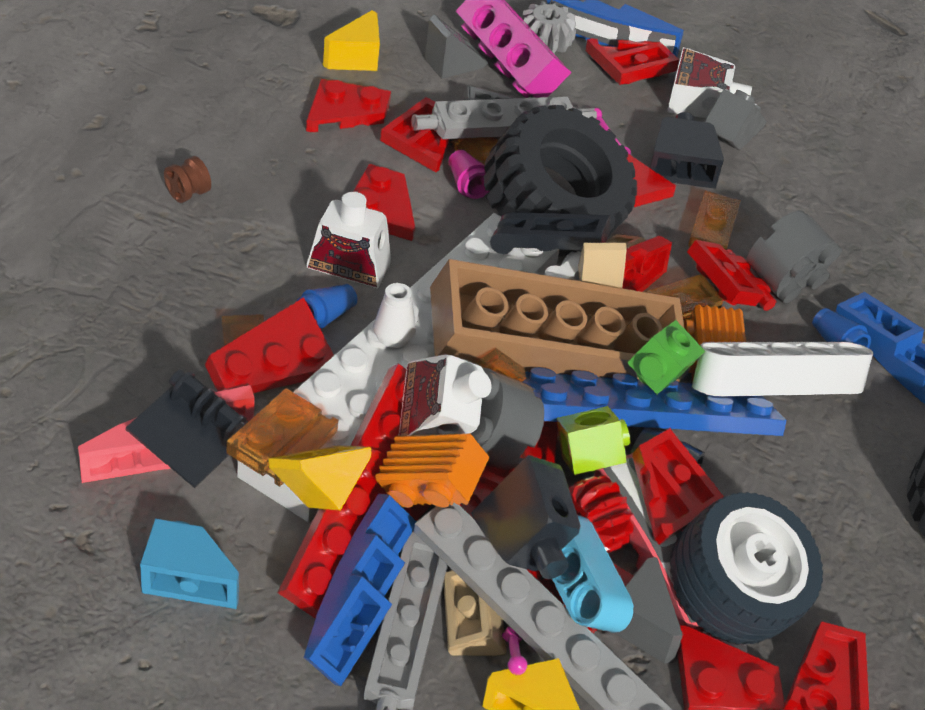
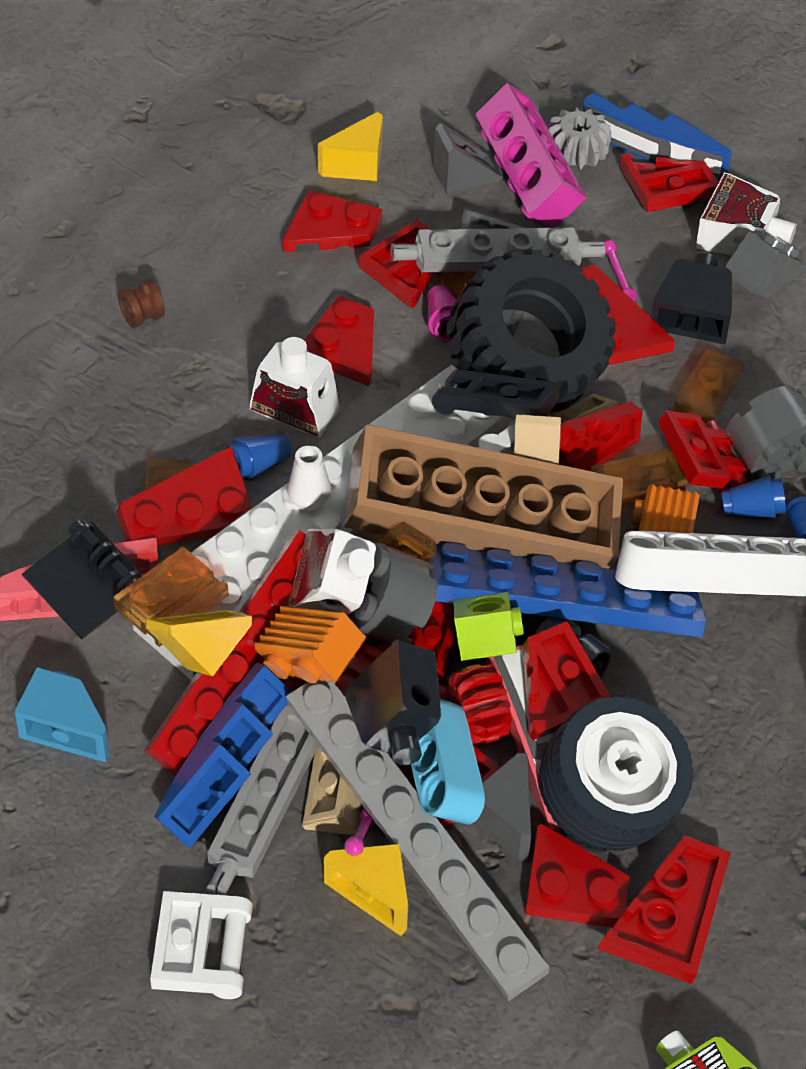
camera: 15 degrees right, 5 degrees up
(665, 357) = (583, 544): bright green brick -> none
(786, 313) = (755, 499): none -> blue cone

